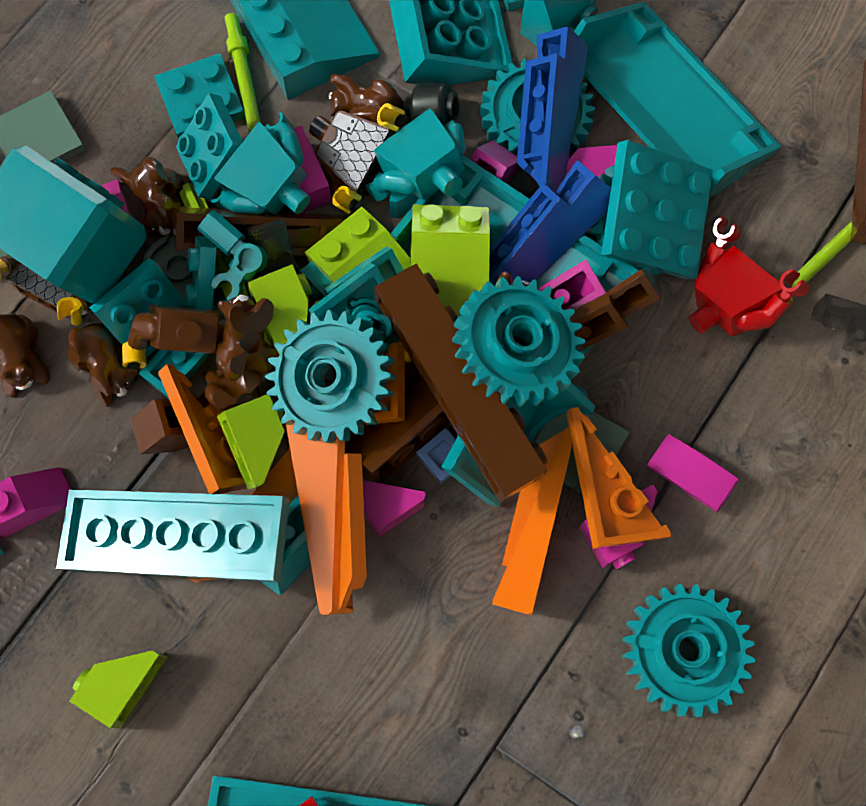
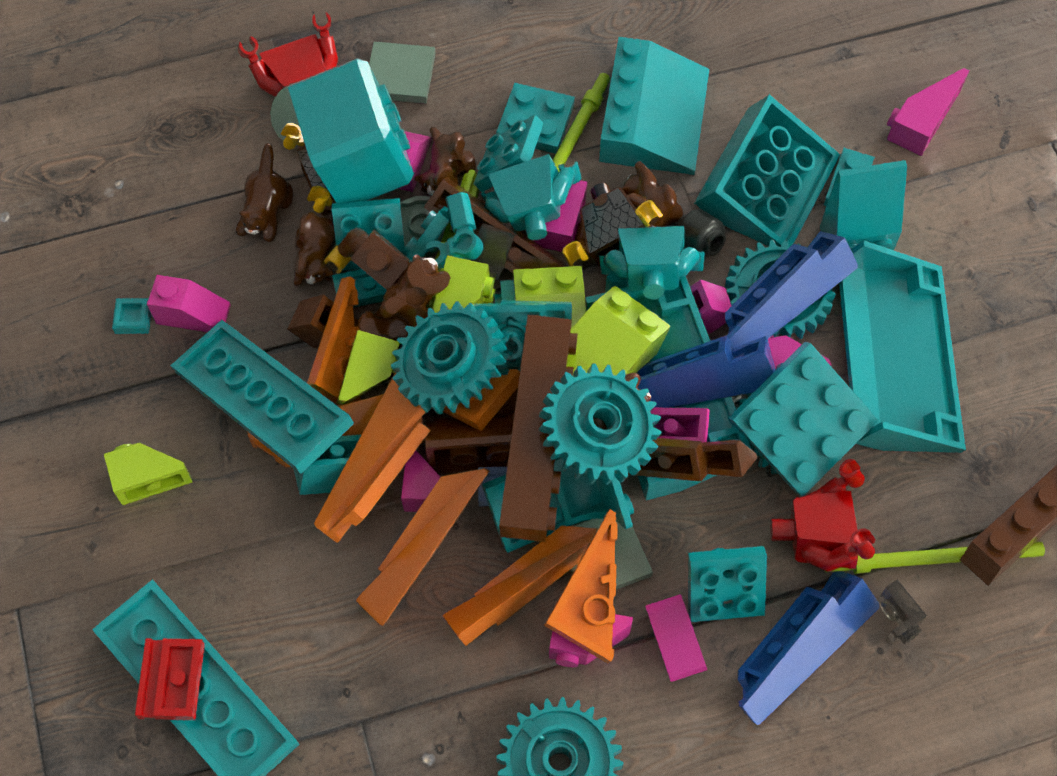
camera: 40 degrees right, 10 degrees down
(428, 558) = (419, 542): none -> orange wedge
(700, 396) = (725, 577): none -> teal plate
(787, 400) = (803, 641): none -> blue wedge

